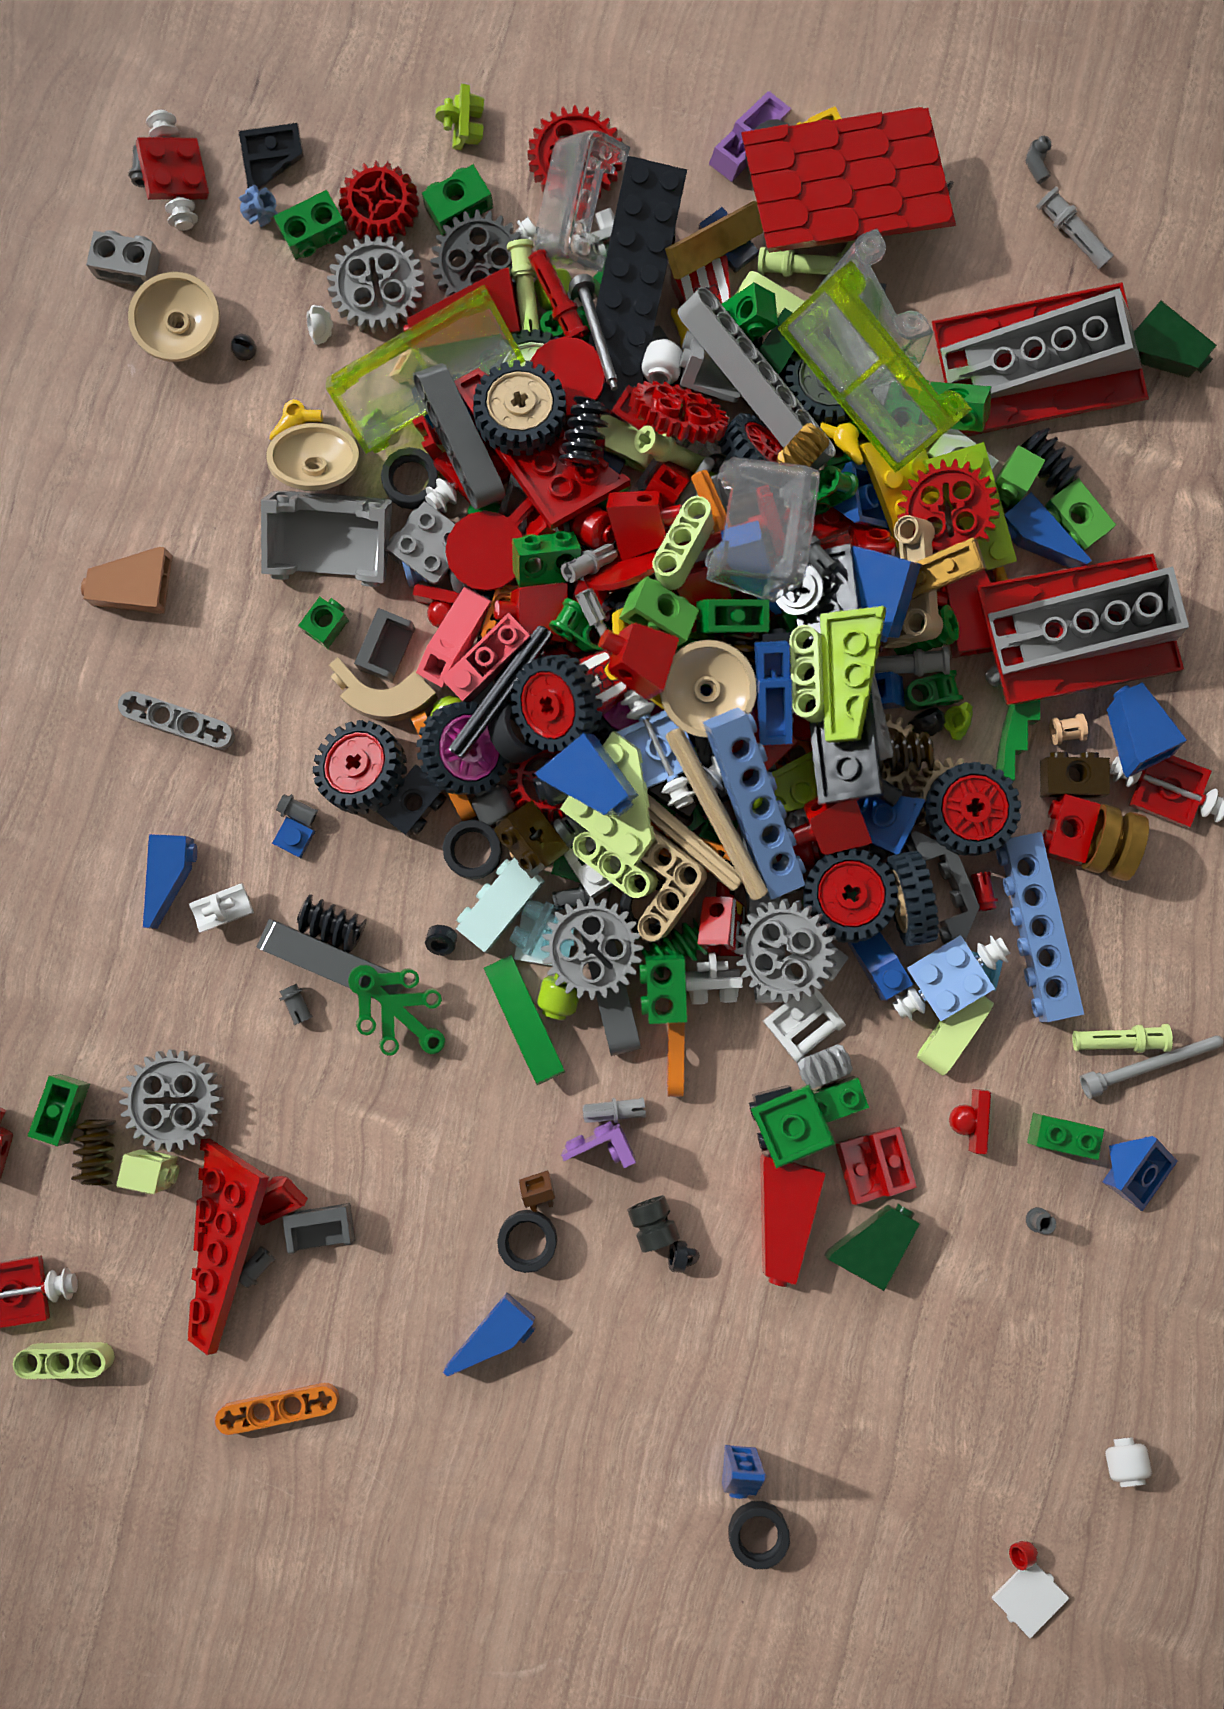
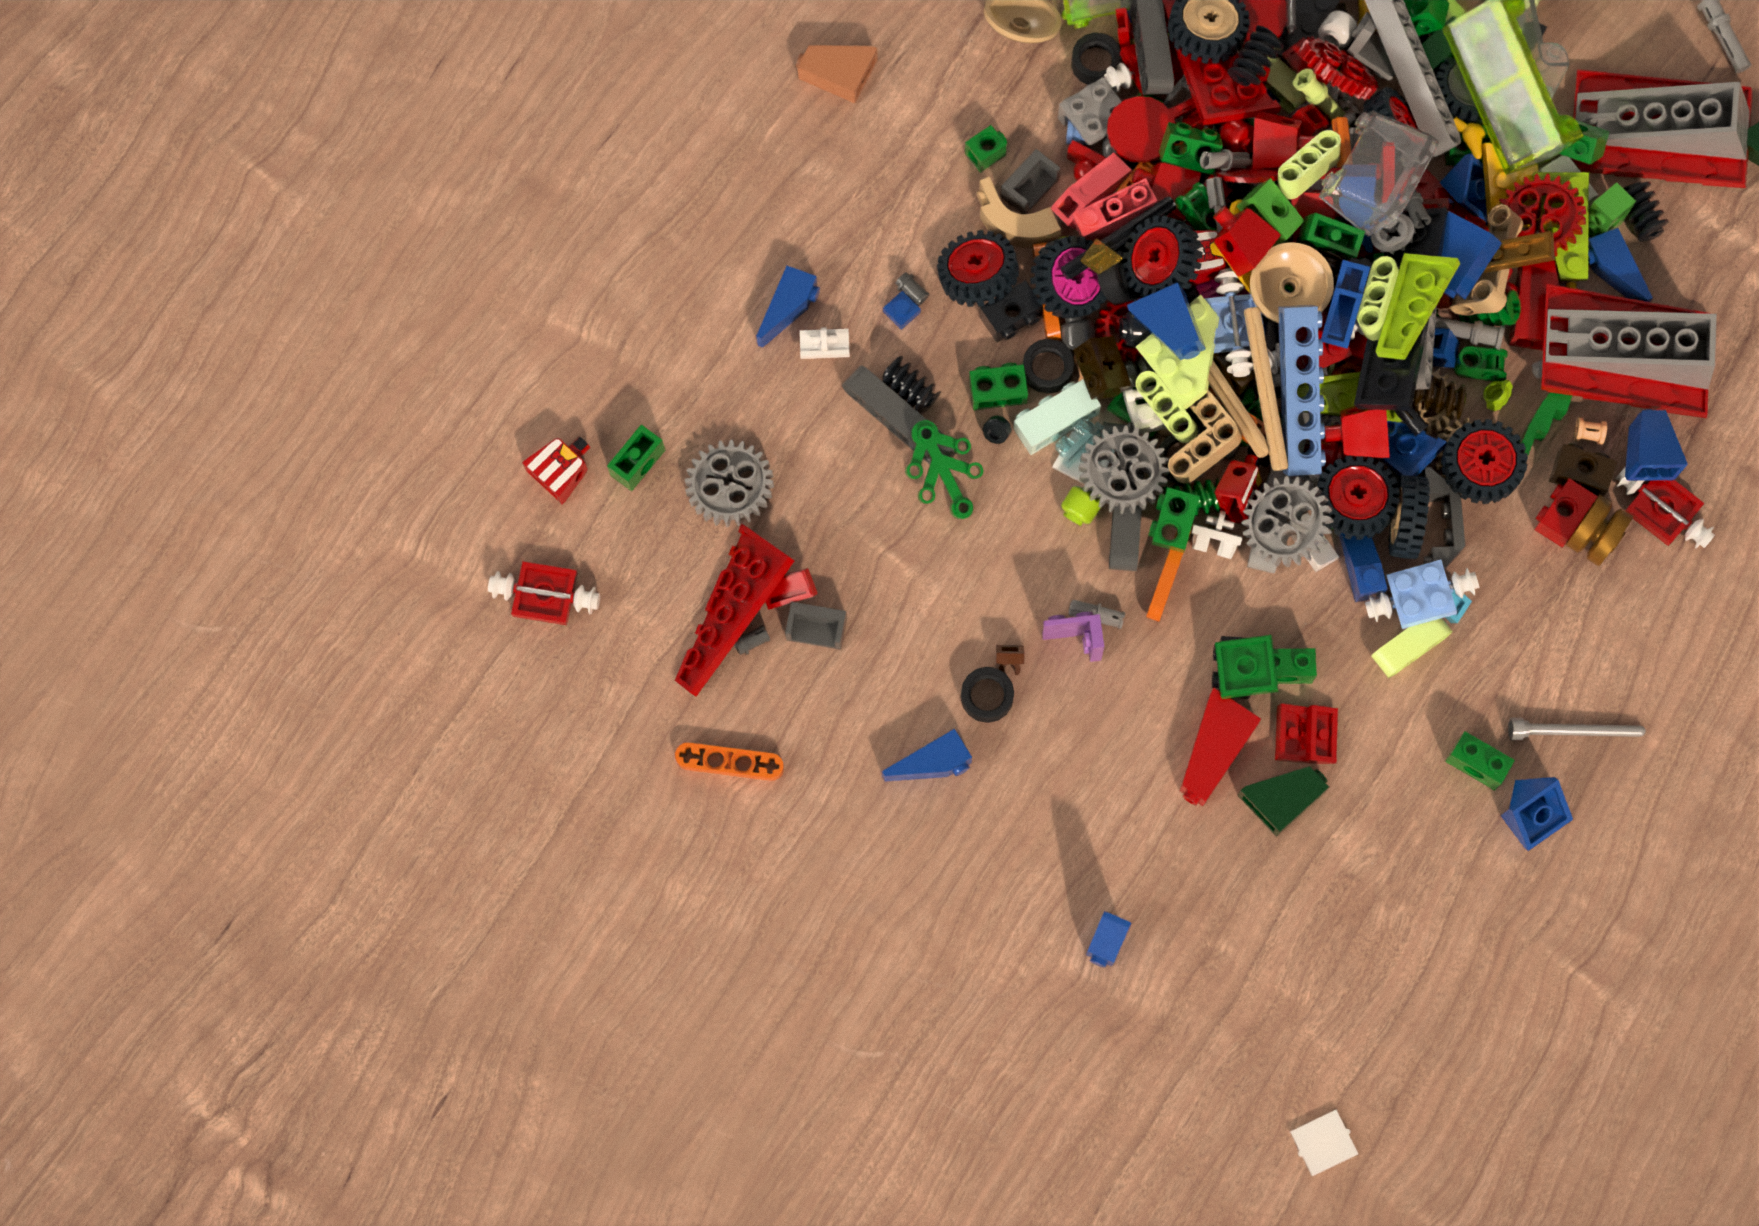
camera: 25 degrees right, 10 degrees down
(50, 1367) = (577, 669): yellowish green beam -> none
(94, 1151) = (649, 502): dark brown piece -> none
(148, 1171) = (693, 528): yellowish green brick -> none
(176, 720) = (839, 185): light grey beam -> none
(295, 1004) = (858, 441): dark grey pin -> none
(325, 535) = (1011, 82): light grey windscreen -> none
(428, 898) = (999, 394): none -> green brick
(488, 724) = (1100, 257): none -> clear yellow slope
(524, 1020) = (1045, 515): green slope -> none
(653, 1224) = (1099, 710): pearl dark grey wheel -> none
(678, 1256) = (1112, 749): black tile -> none
(759, 1560) = (1117, 986): black tyre -> none
(795, 1016) = (1279, 587): white plate -> none
(804, 446) = (1436, 123): pearl gold gear -> none
(825, 1066) = (1290, 632): light grey gear -> none
(834, 488) = (1444, 170): green piece -> none
(928, 721) = (1474, 387): black piece -> none
(973, 1120) = (1403, 722): red tile -> none
(984, 891) = (1474, 540): red pin -> none
(1023, 1555) = (1329, 1094): red hinge -> none
(1033, 1220) = (1435, 831): dark grey pin -> none
(1053, 939) = (1525, 517): medium blue brick -> none
(1079, 500) = (1656, 248): bright green brick -> none
(1128, 1462) = (1447, 1052): white head -> none
(1136, 1038) = (1569, 703): yellowish green pin -> none

